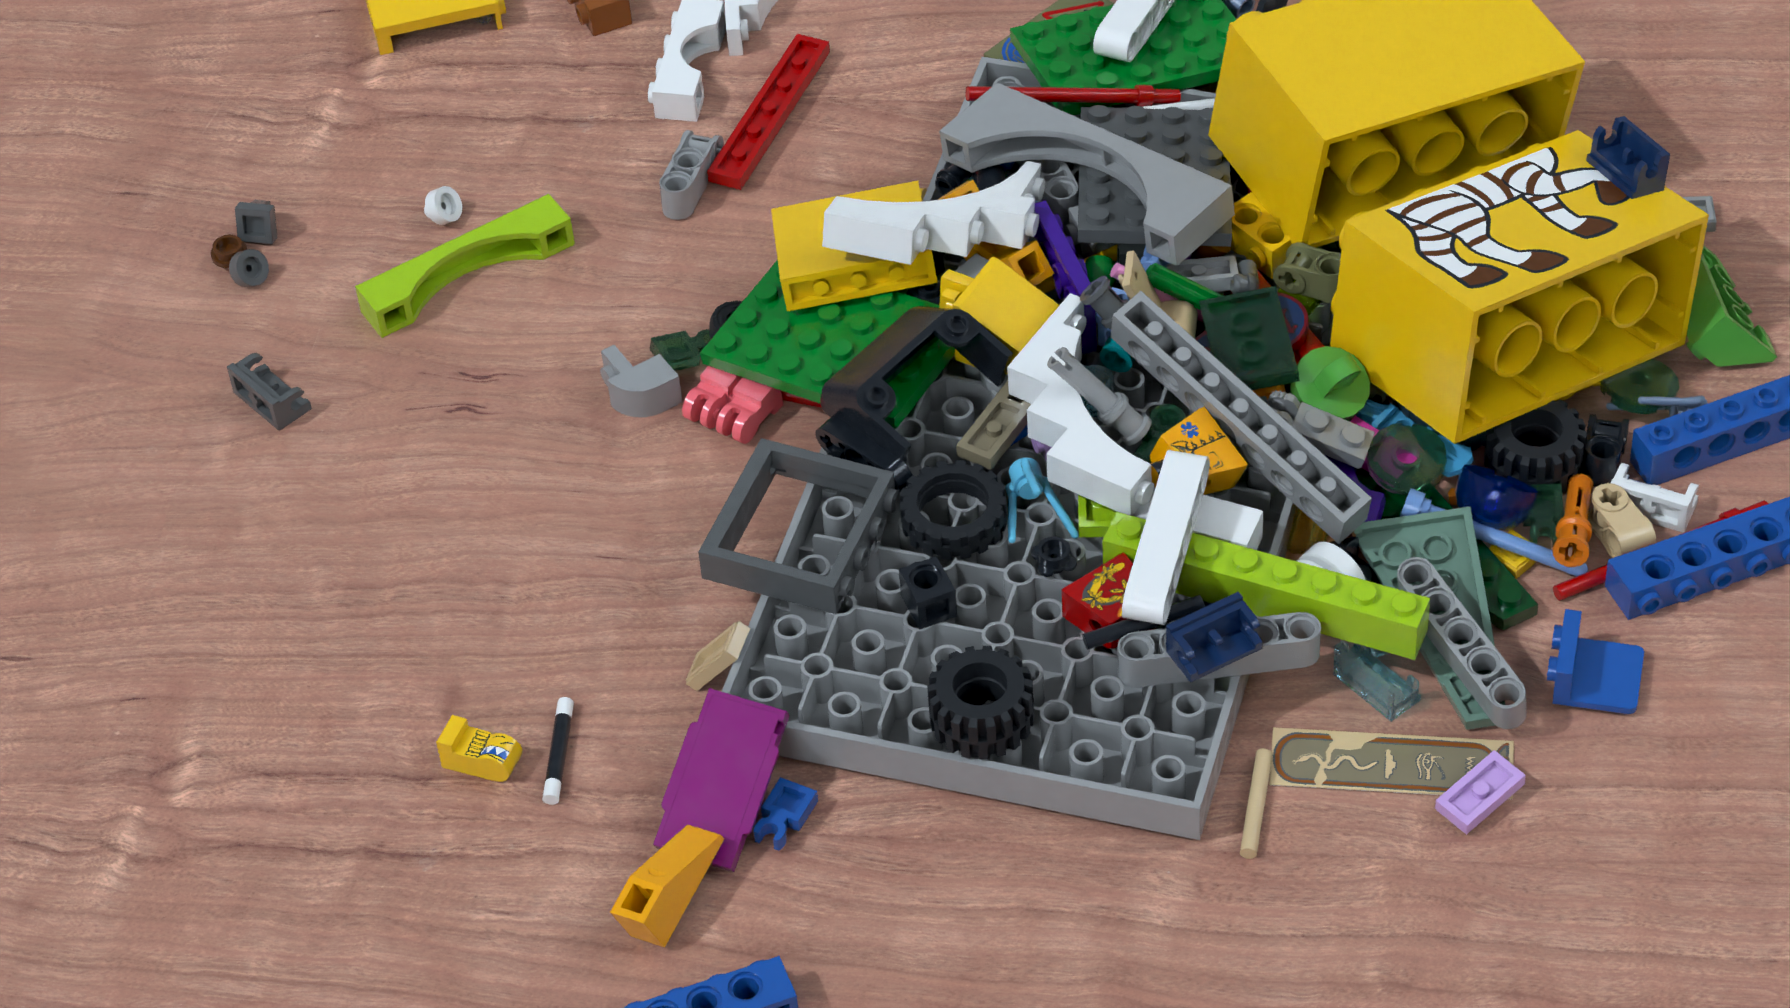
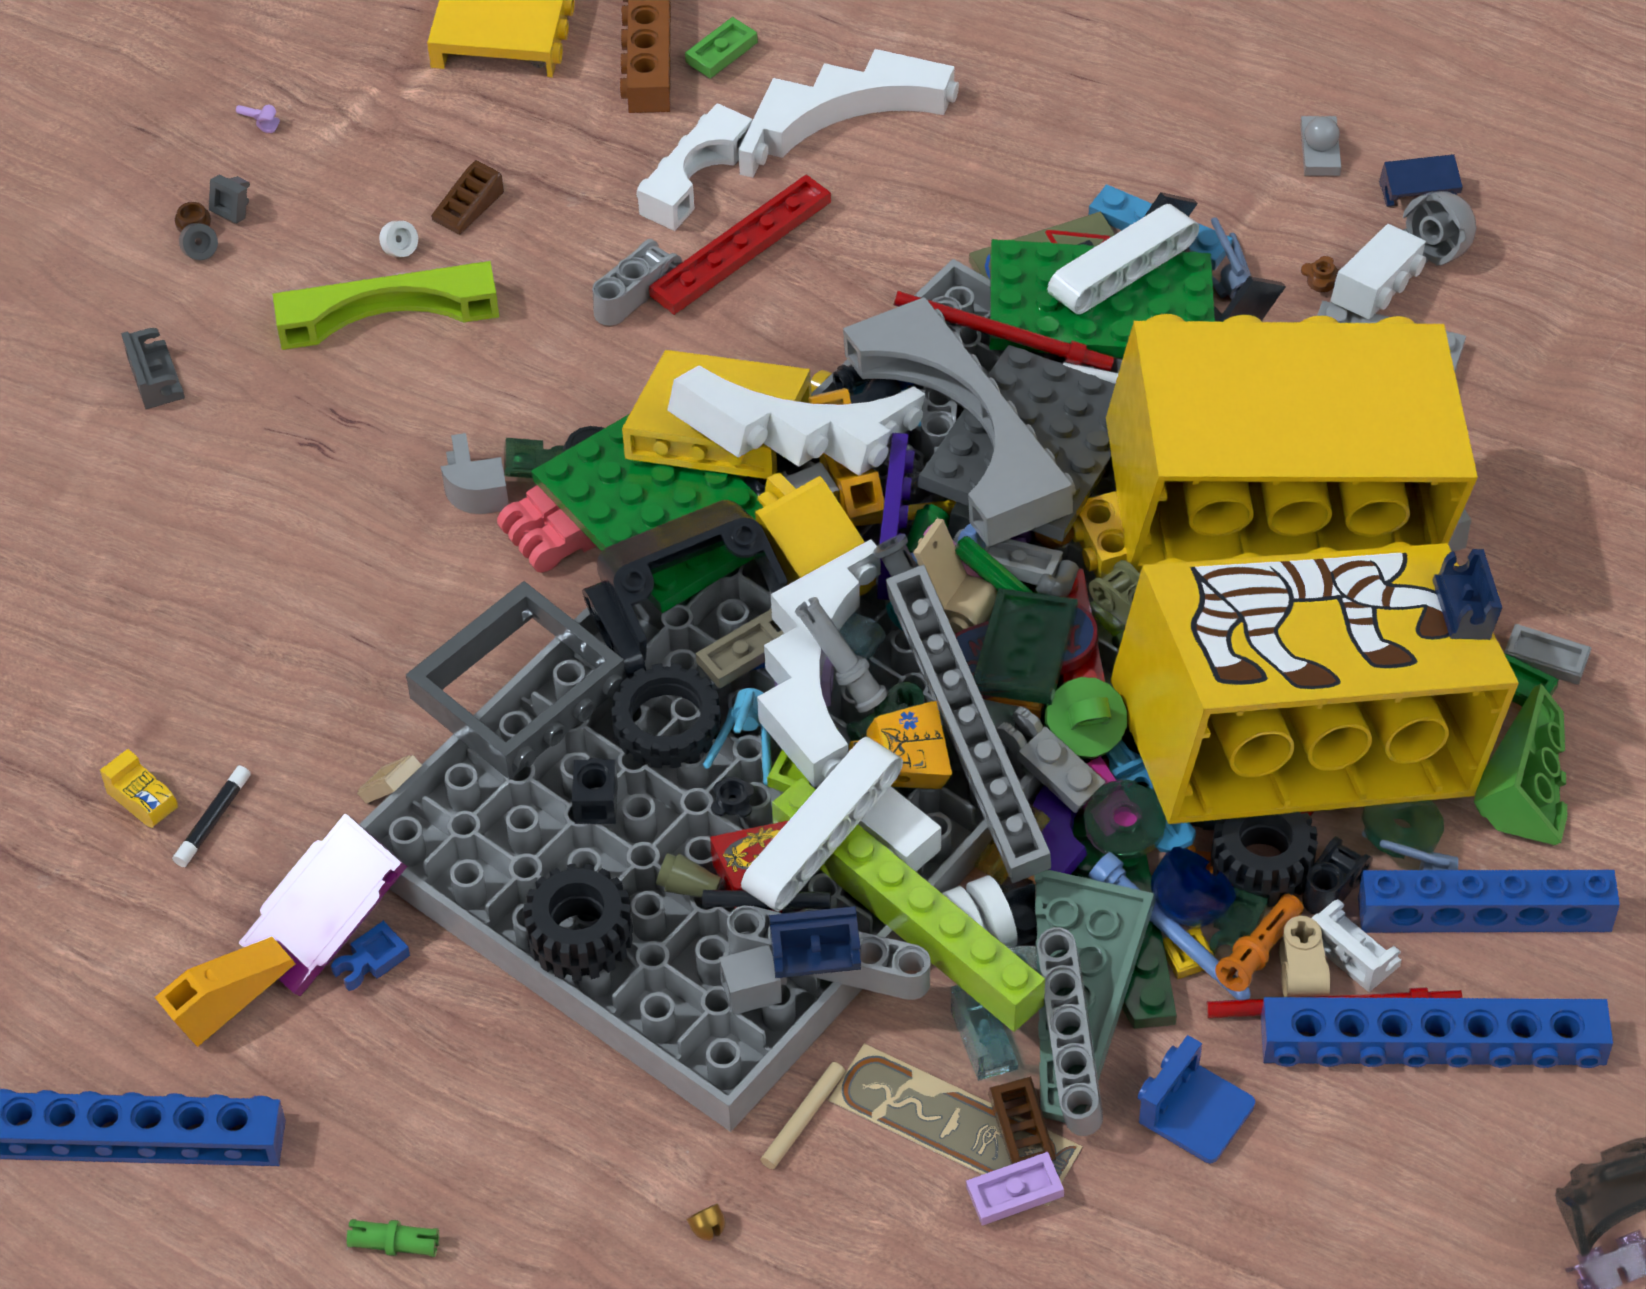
camera: 20 degrees right, 5 degrees up
(248, 144) = (265, 118): none -> lavender hand
(488, 131) = (476, 178): none -> reddish brown slope
(1053, 634) = (685, 877): none -> olive cone
(1162, 696) = (750, 979): none -> light grey brick
(1225, 919) = (707, 1222): none -> pearl gold hinge
(1454, 721) = (1012, 1091): none -> reddish brown slope

